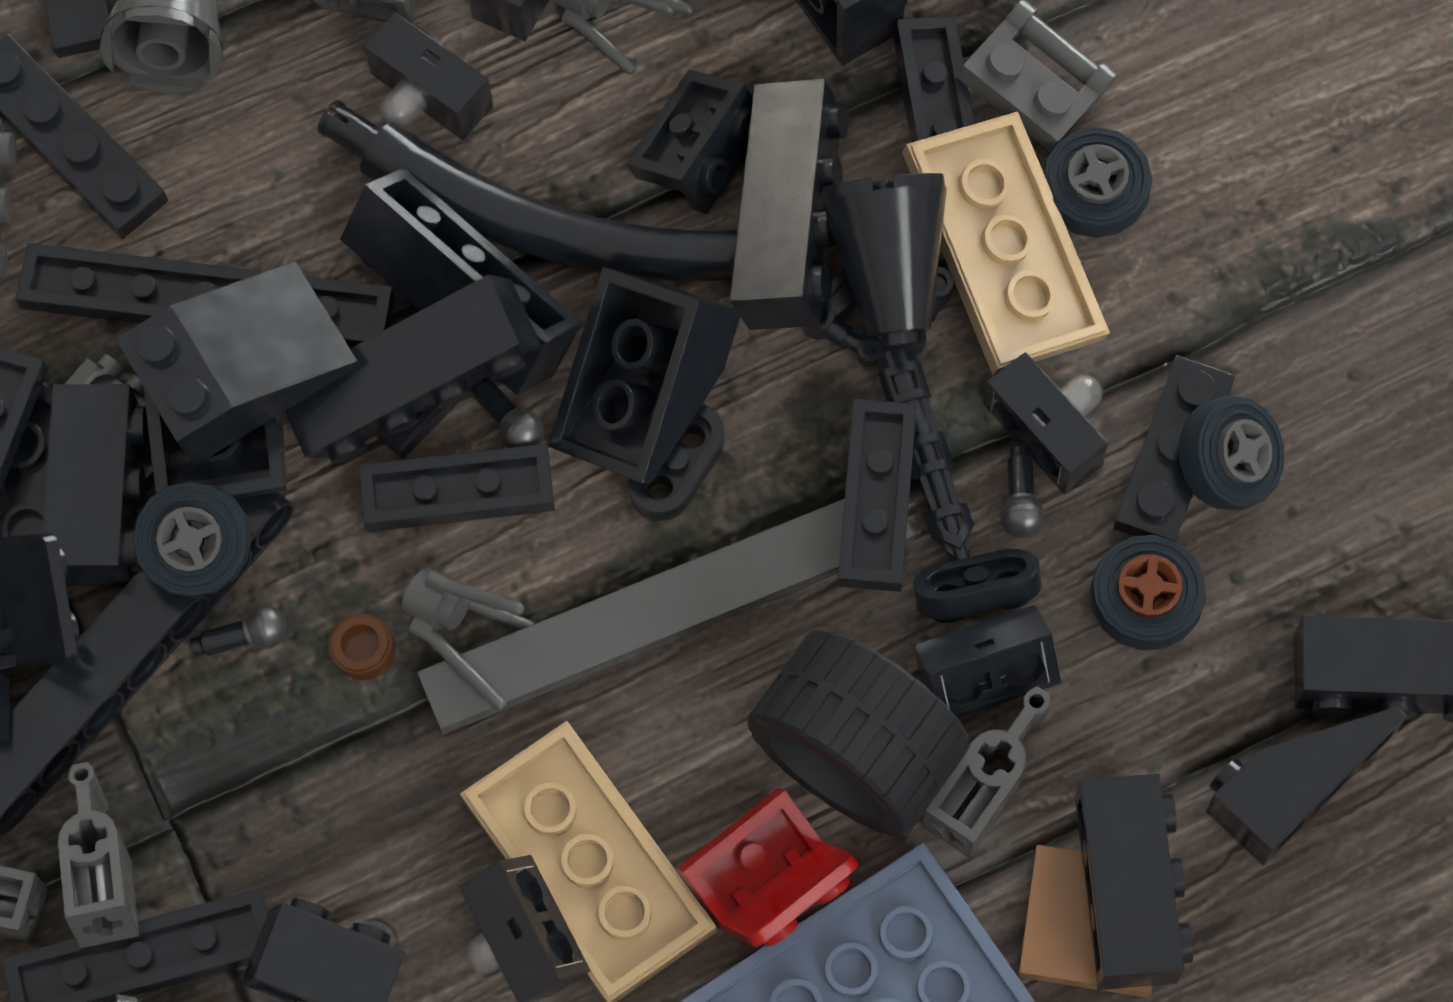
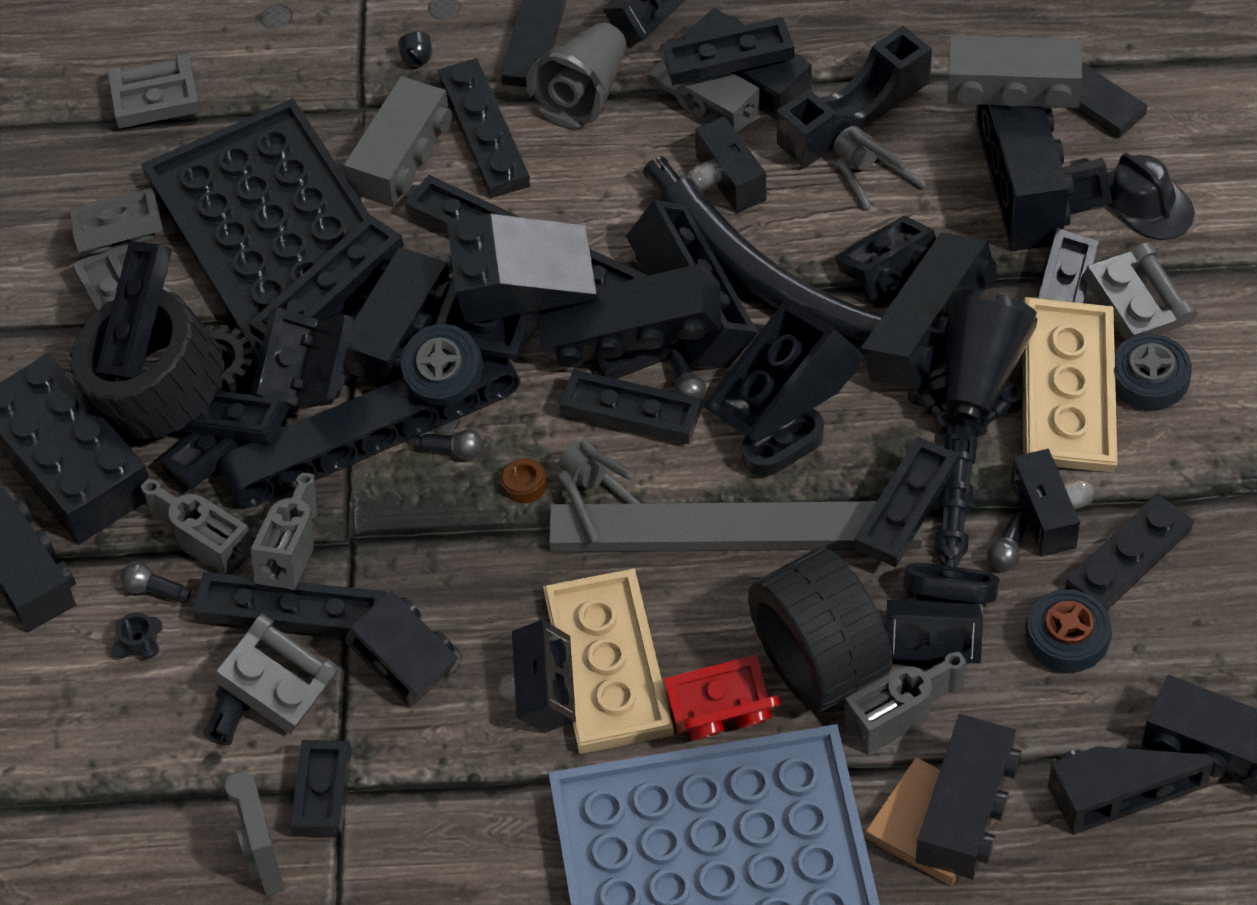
camera: 25 degrees right, 15 degrees down
(1254, 456) = (1170, 545): black wheel -> none

